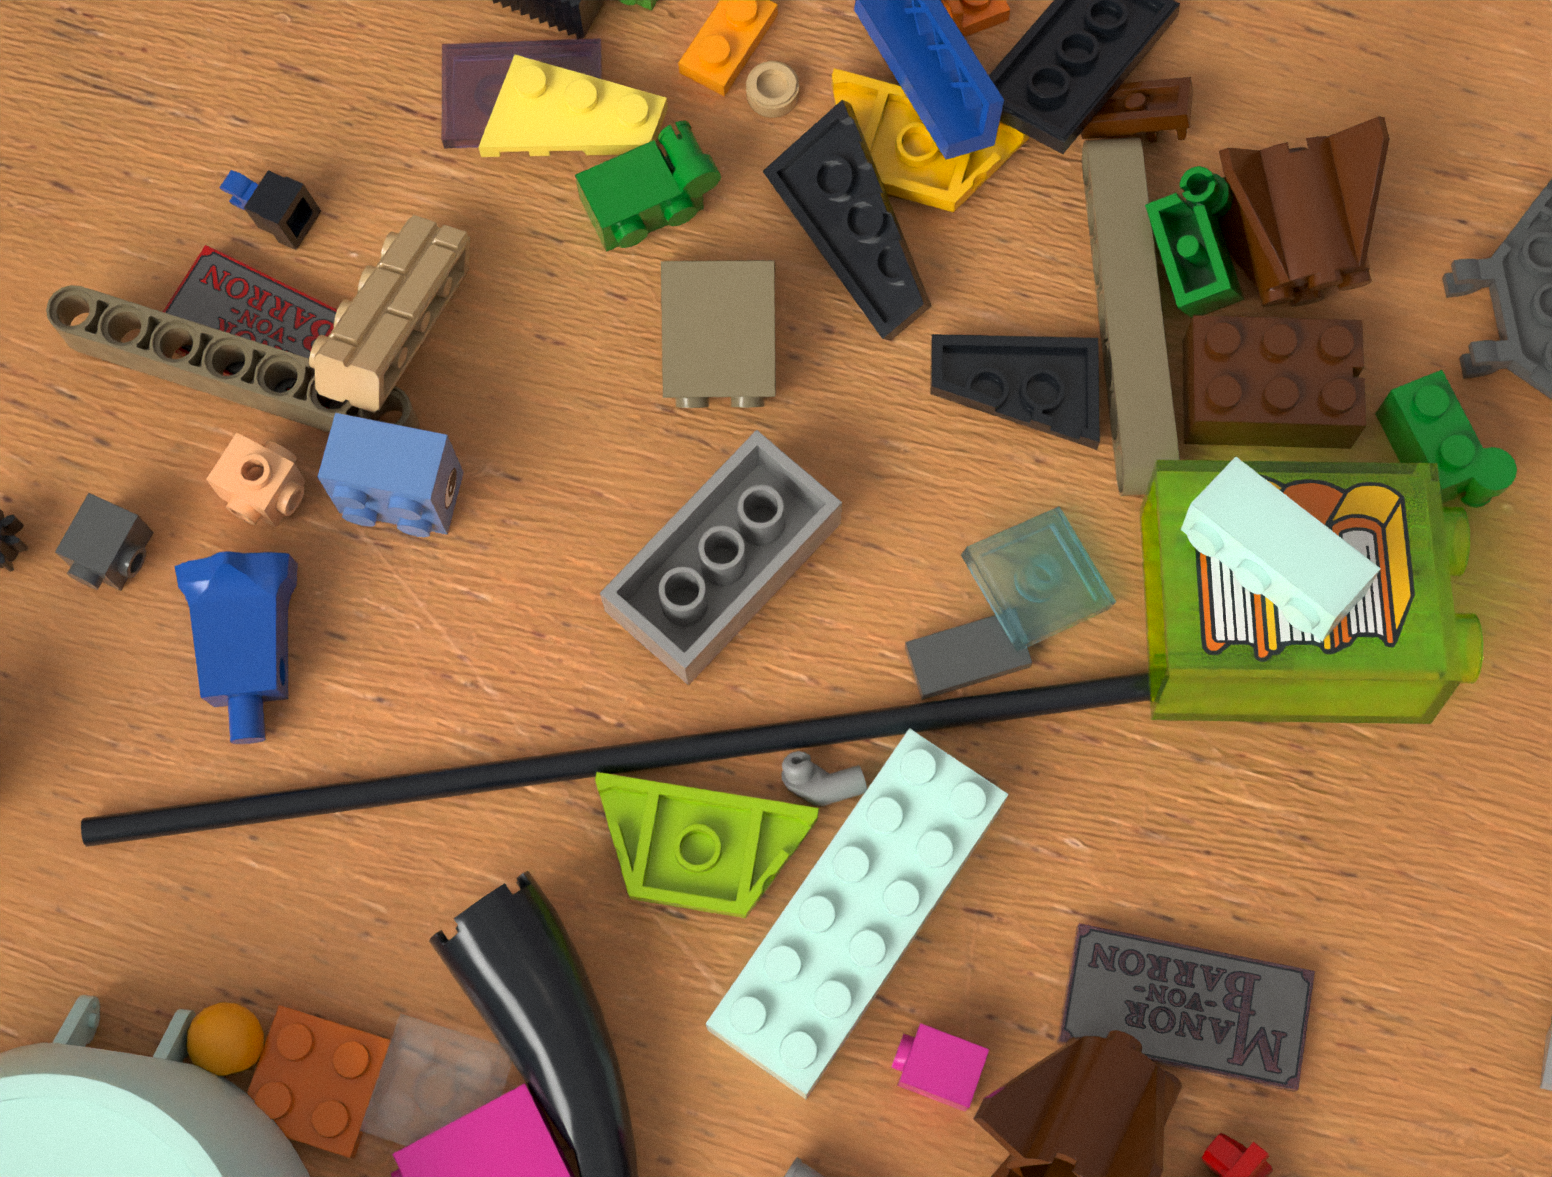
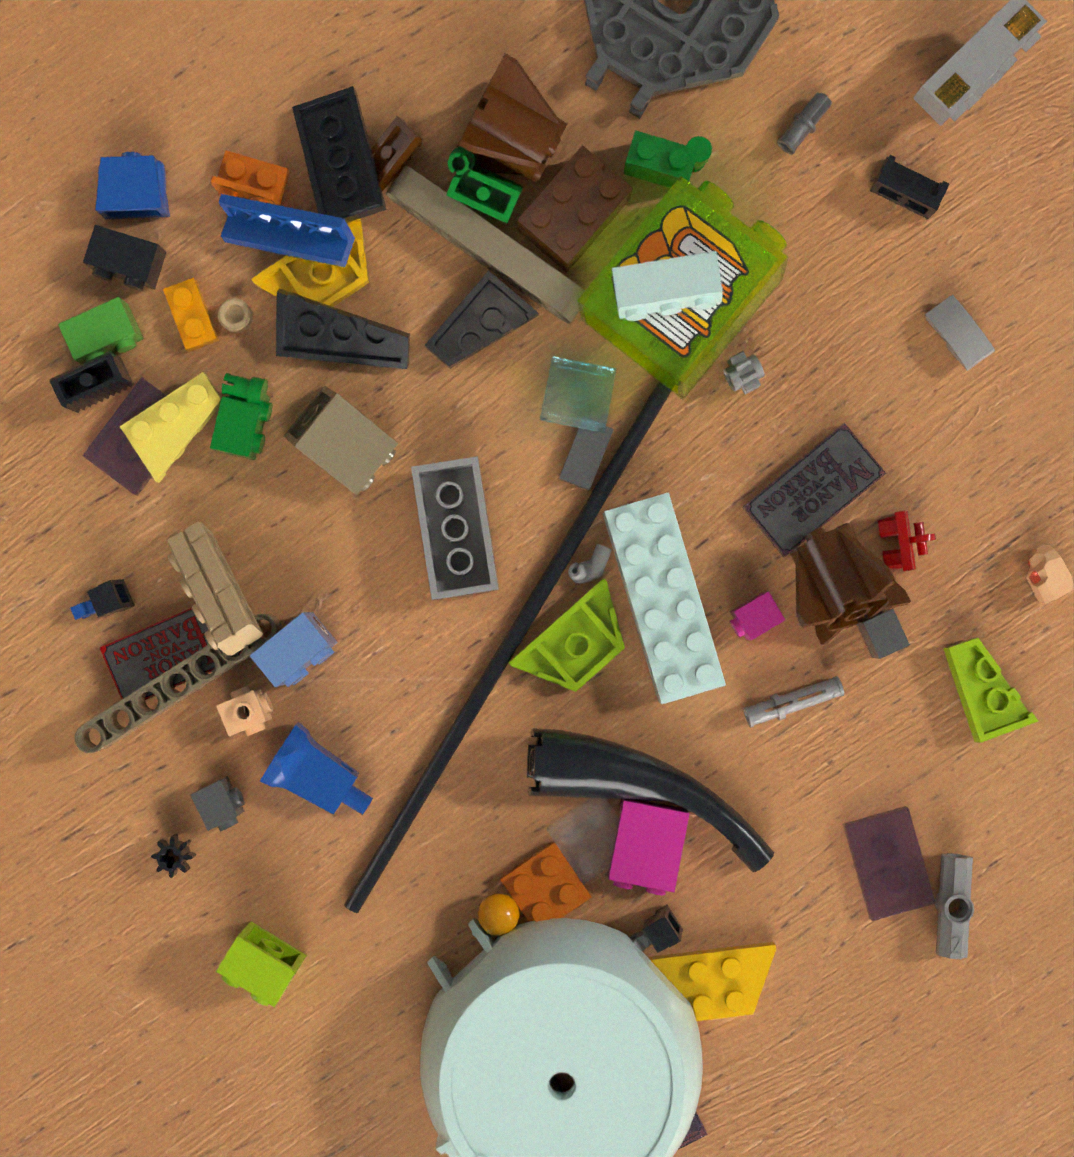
camera: 55 degrees left, 15 degrees up
(1259, 773) = (744, 372): none -> light grey gear

